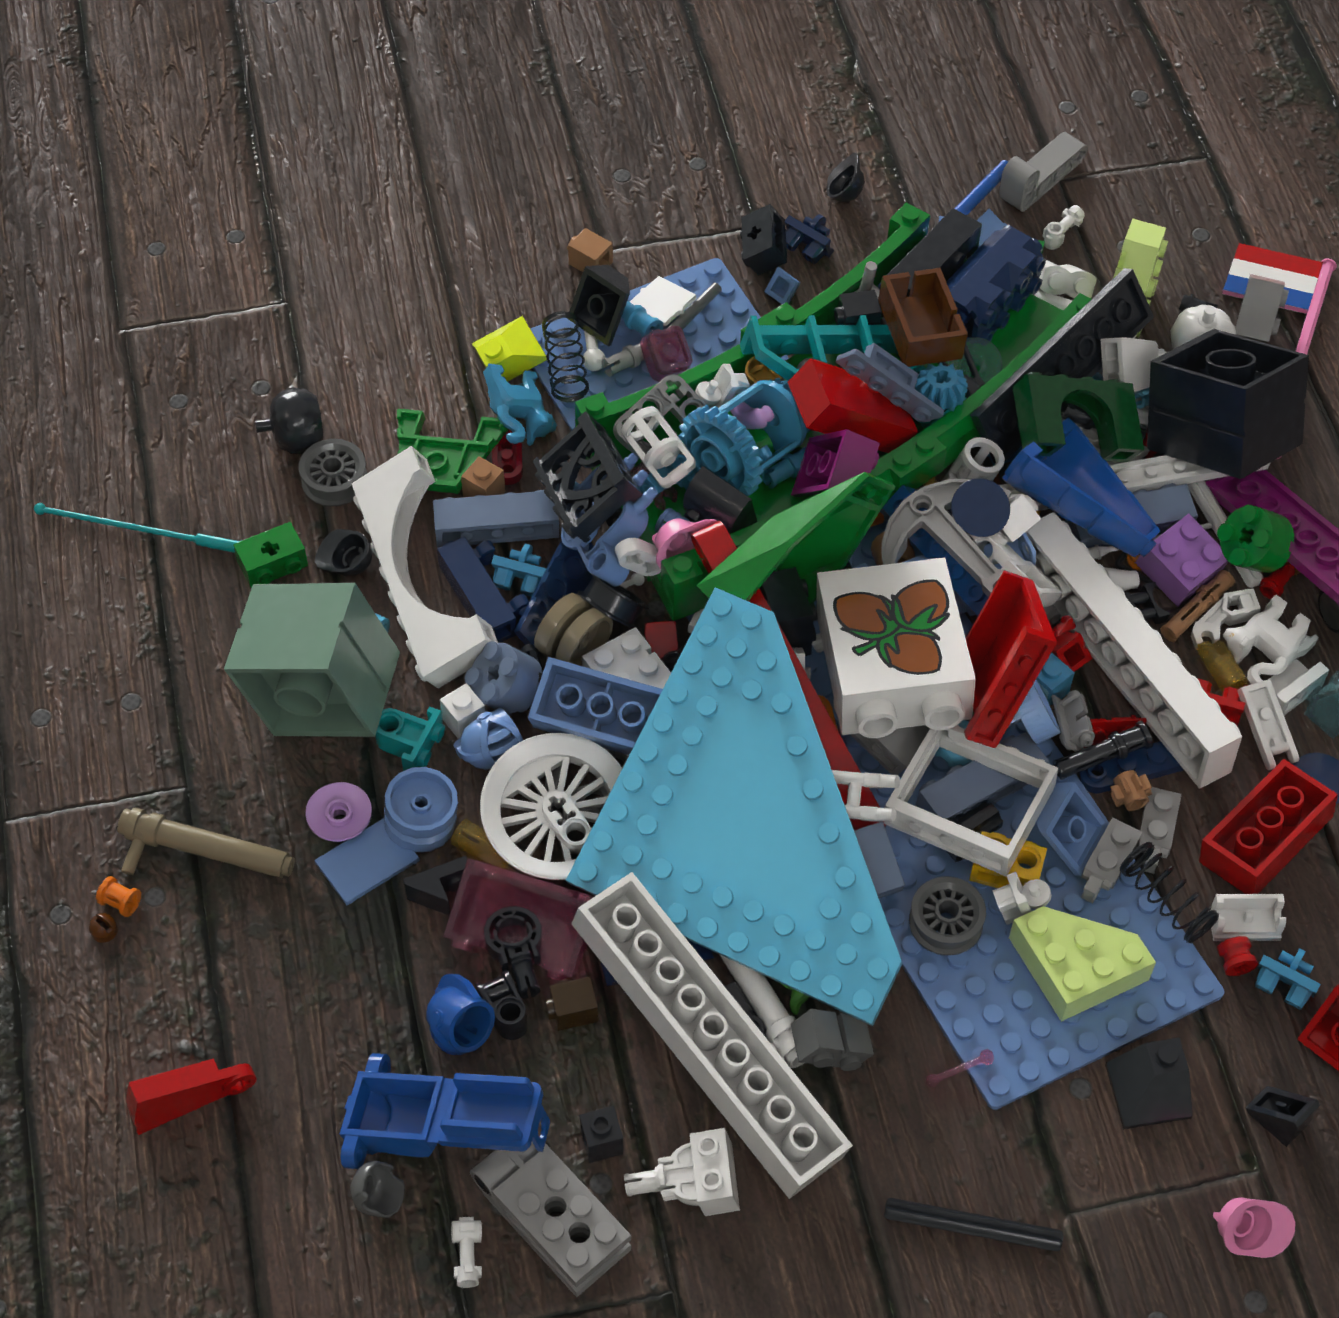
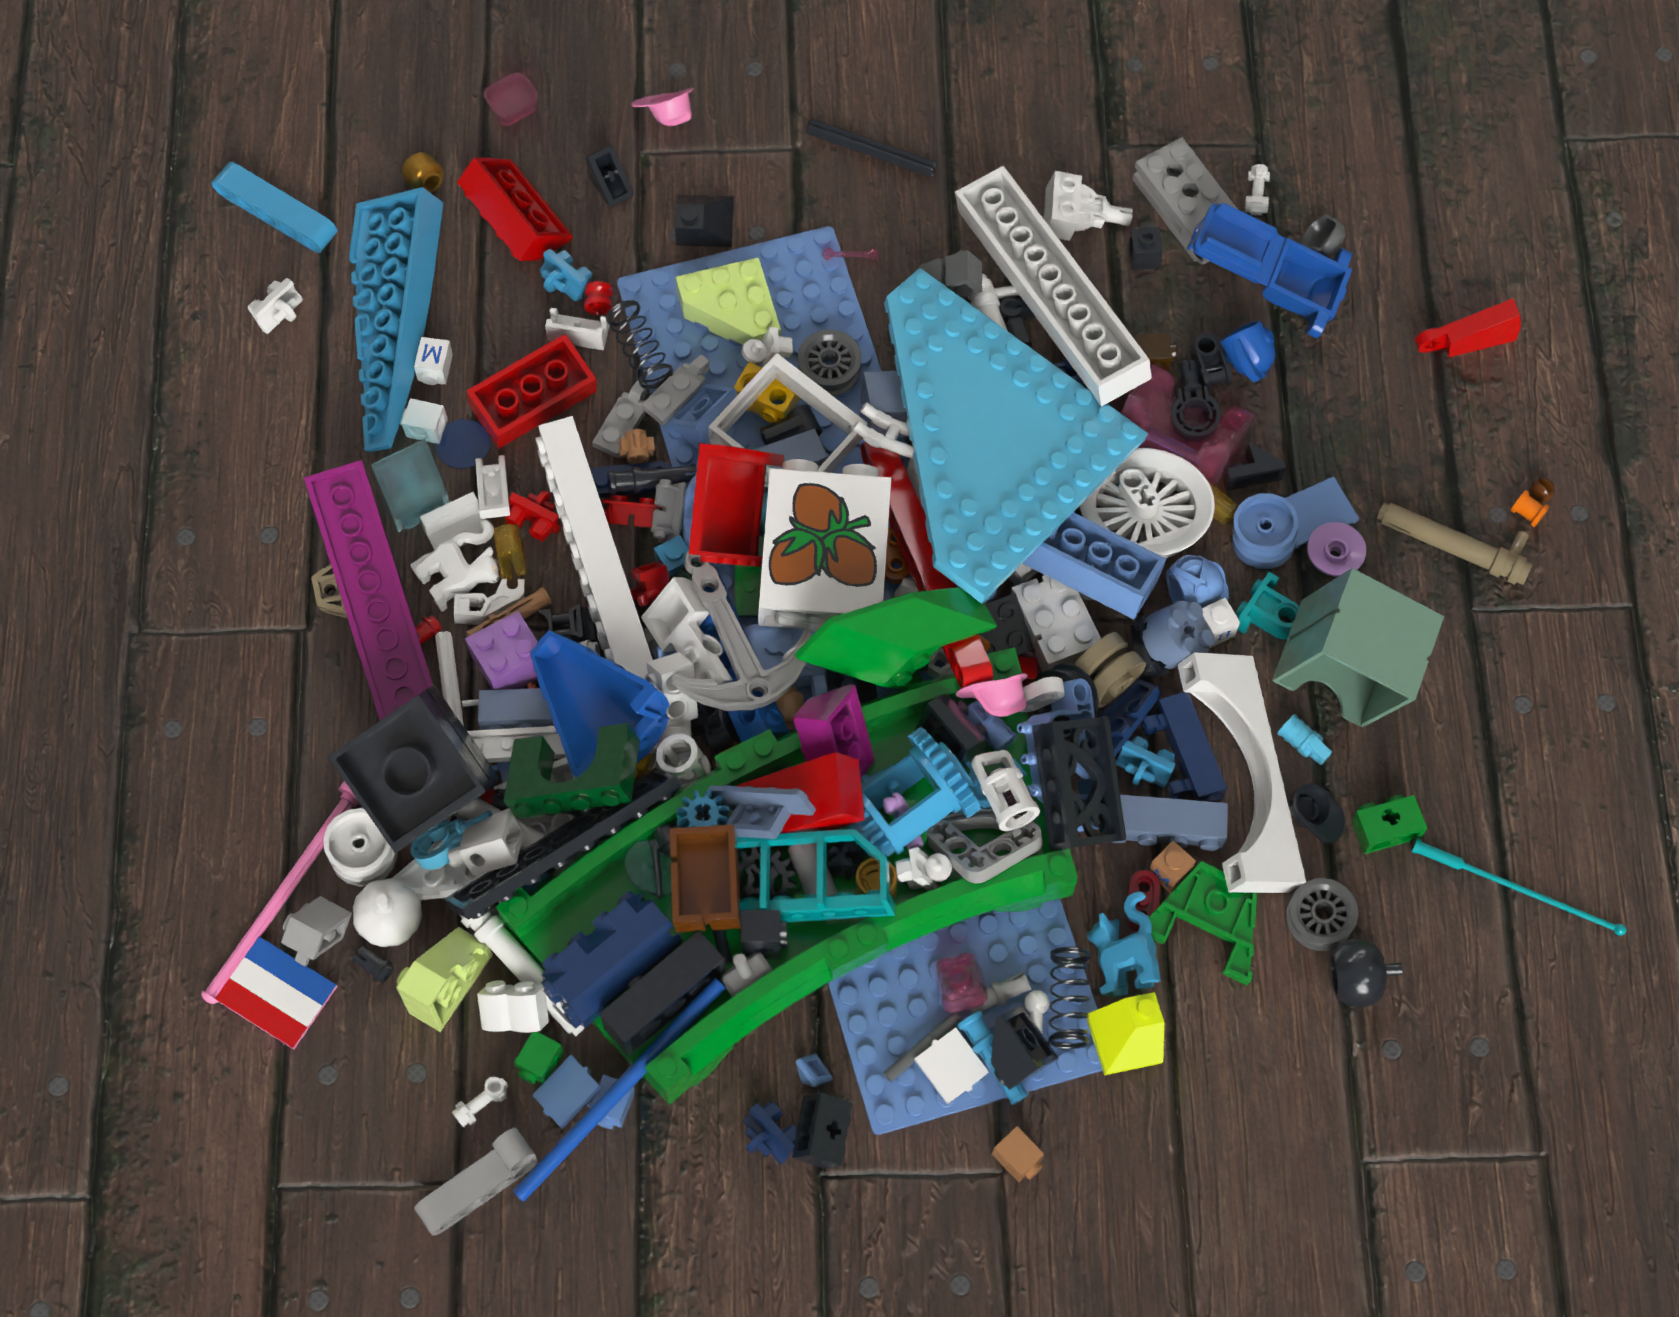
camera: 170 degrees left, 10 degrees up
(846, 180) = (709, 1212): black cap -> none
(980, 507) = (705, 667): dark blue sticker -> none
(1256, 539) = (438, 639): green brick -> none

